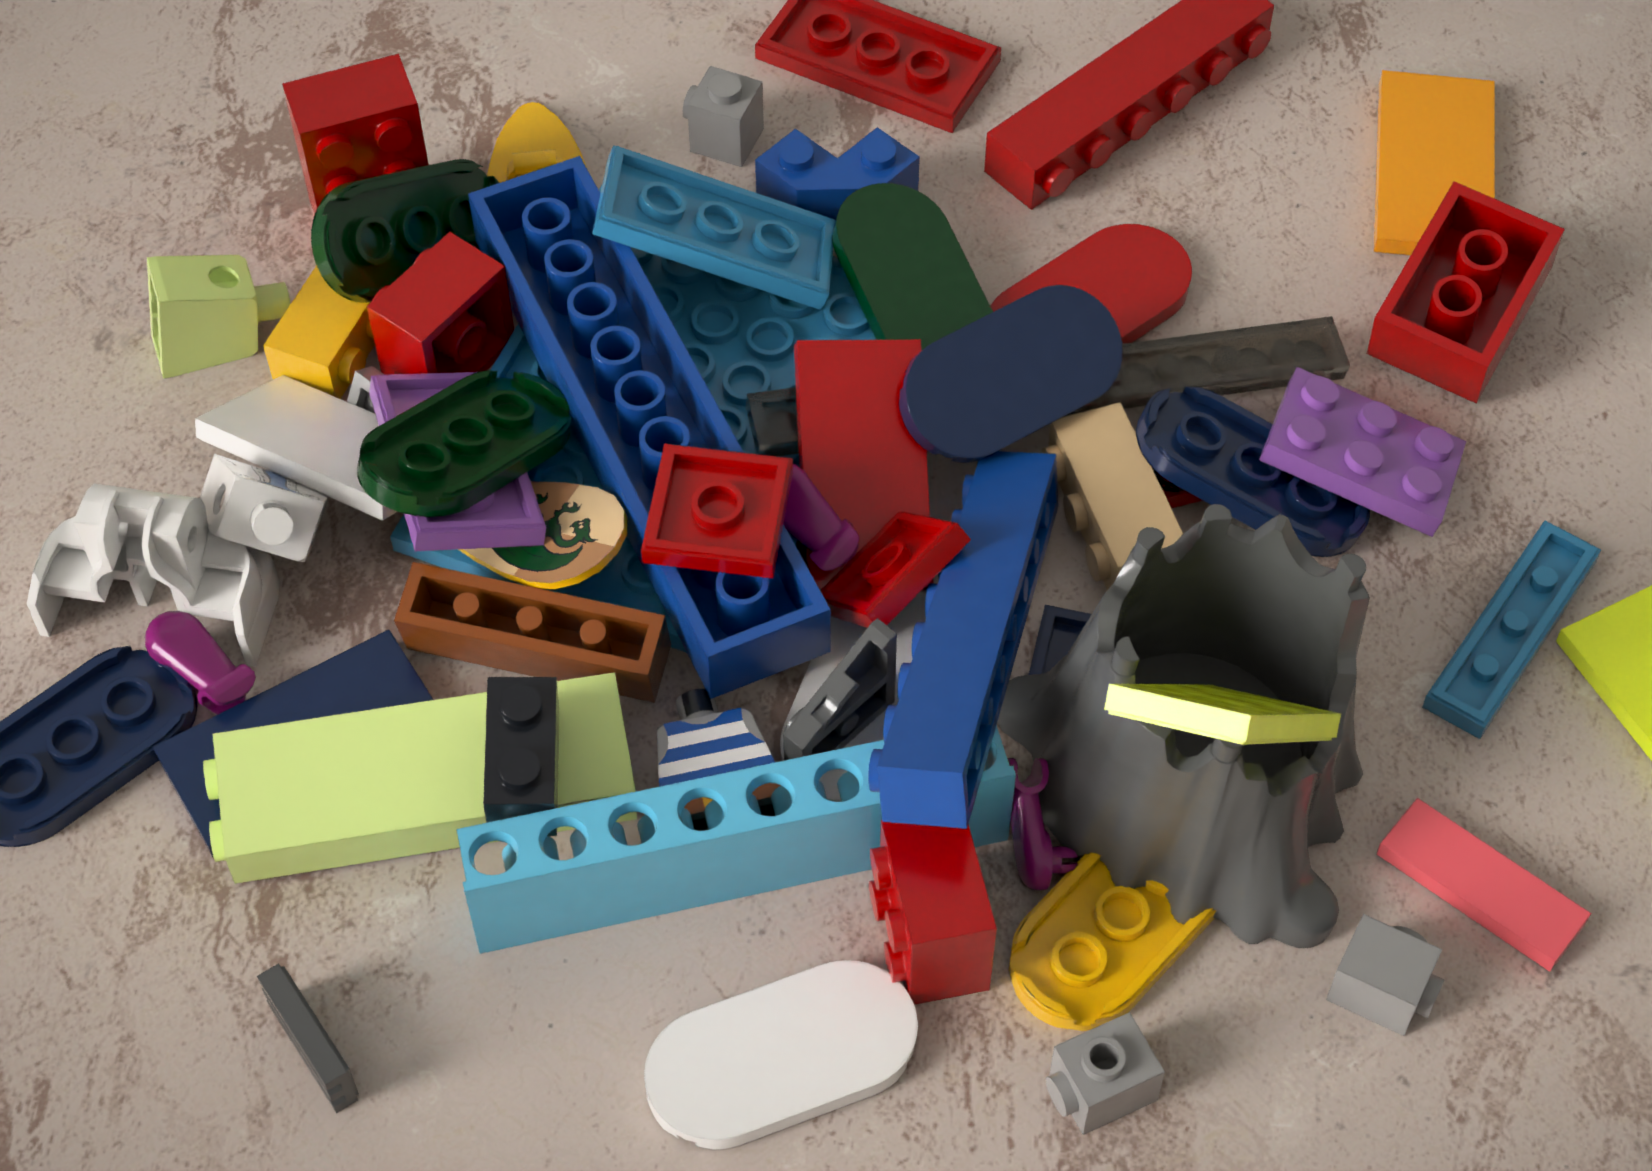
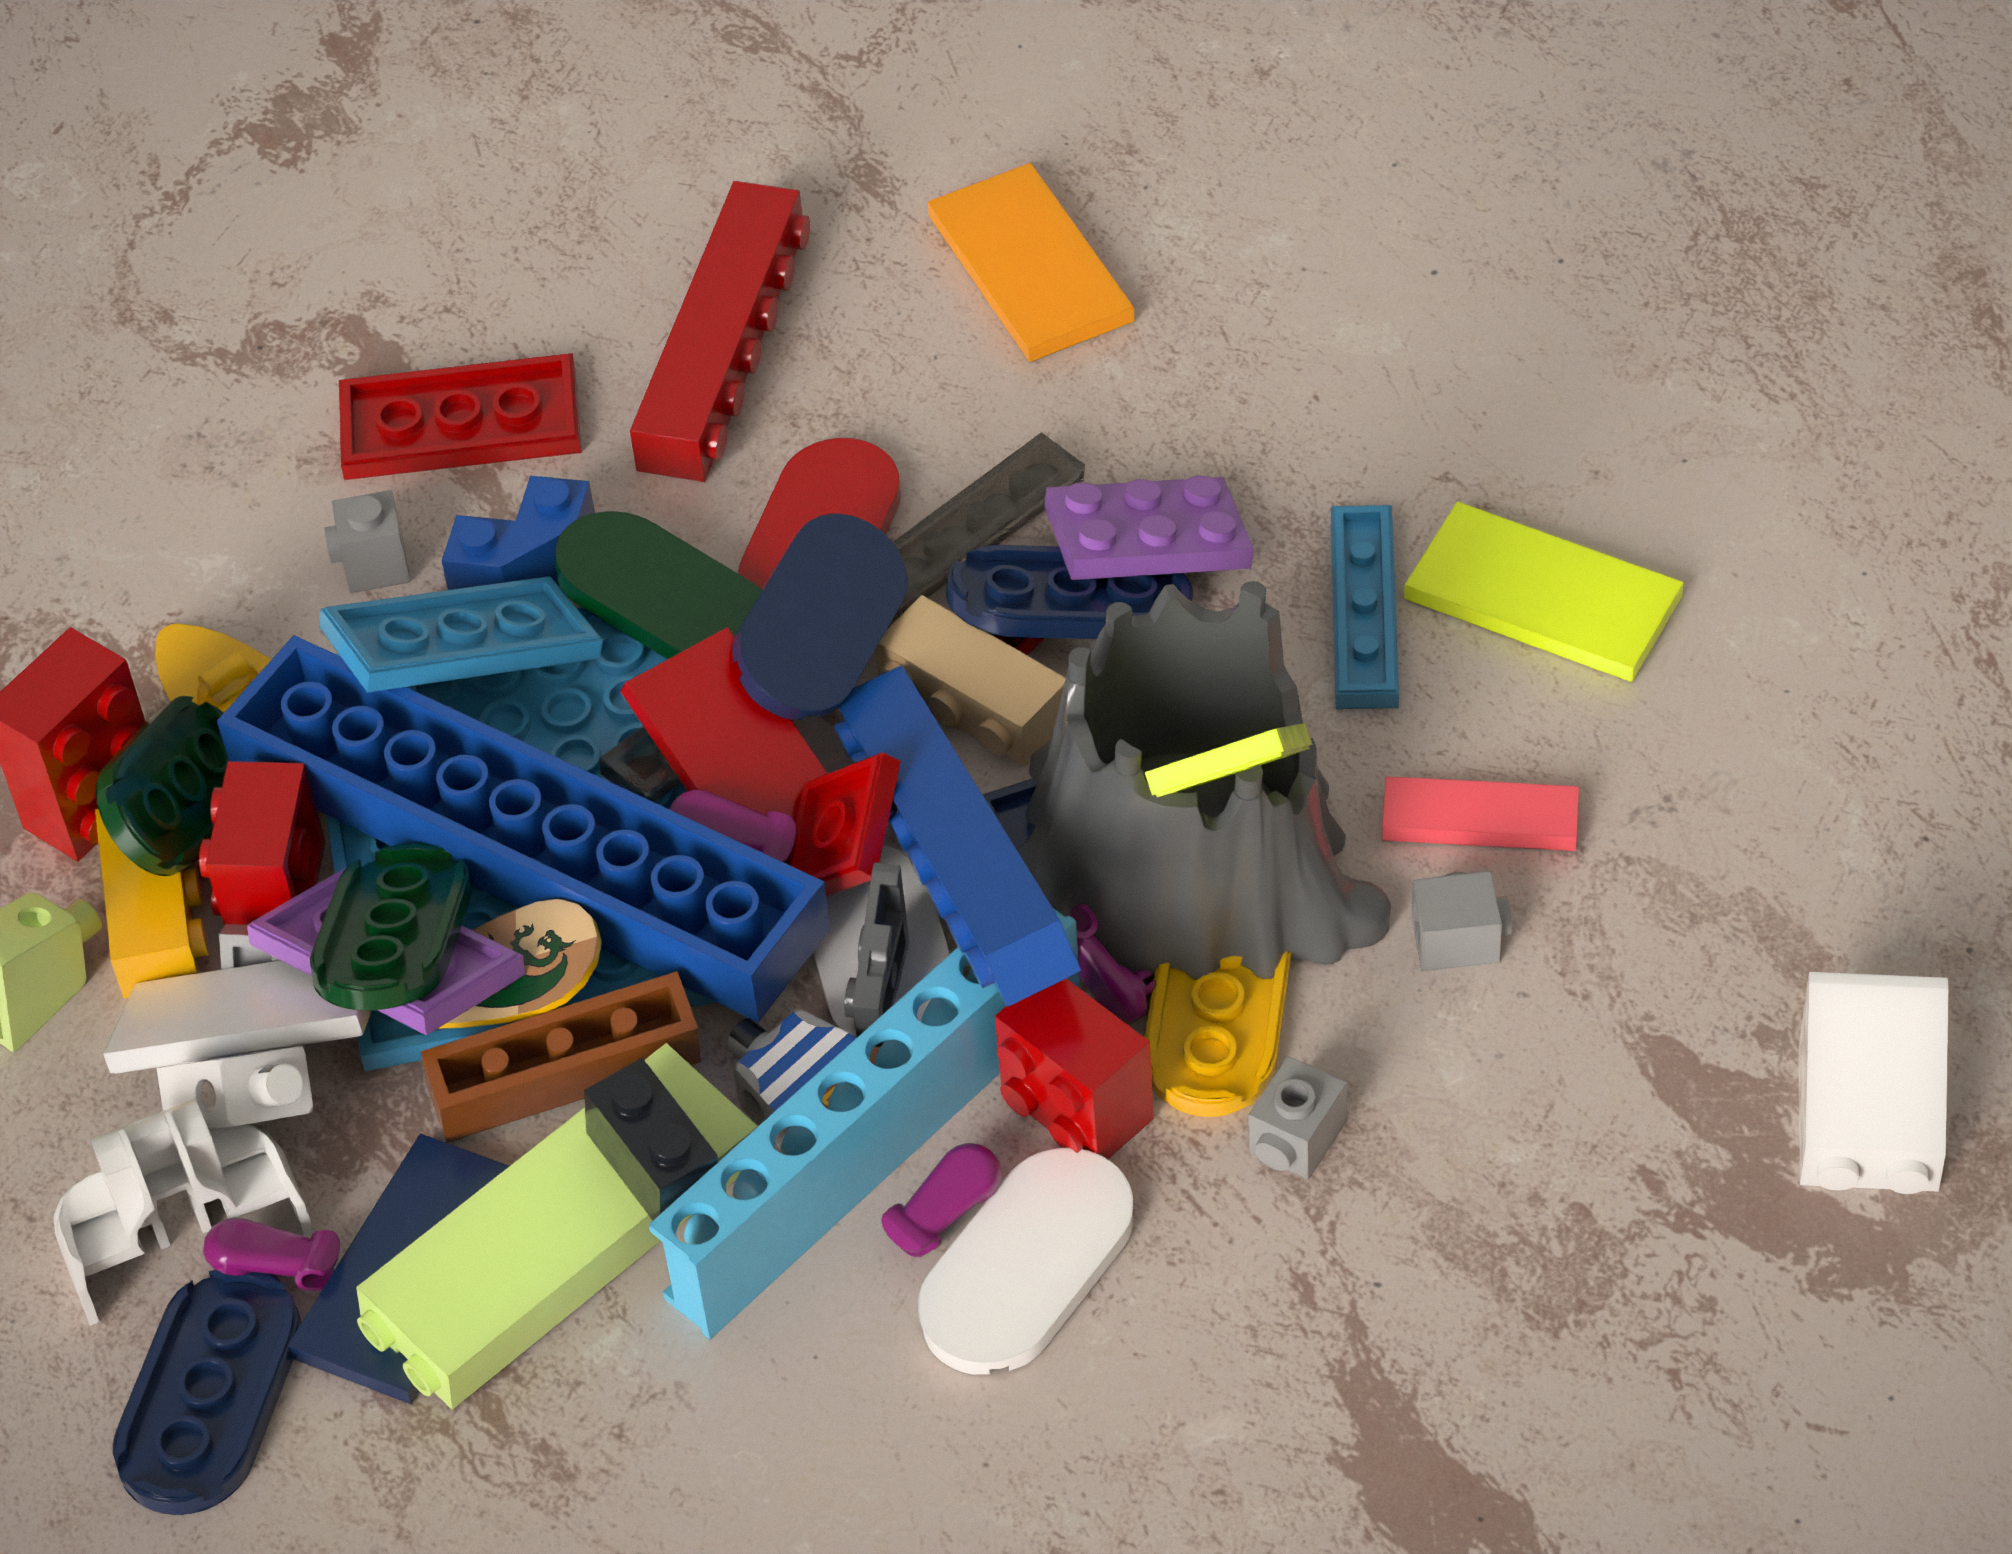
camera: 30 degrees left, 5 degrees down
(309, 1037) = (626, 1478): dark grey tile -> none
(717, 511) = (668, 855): red tile -> none
(768, 947) = (956, 1184): none -> magenta piece
(1464, 291) = (1141, 352): red brick -> none

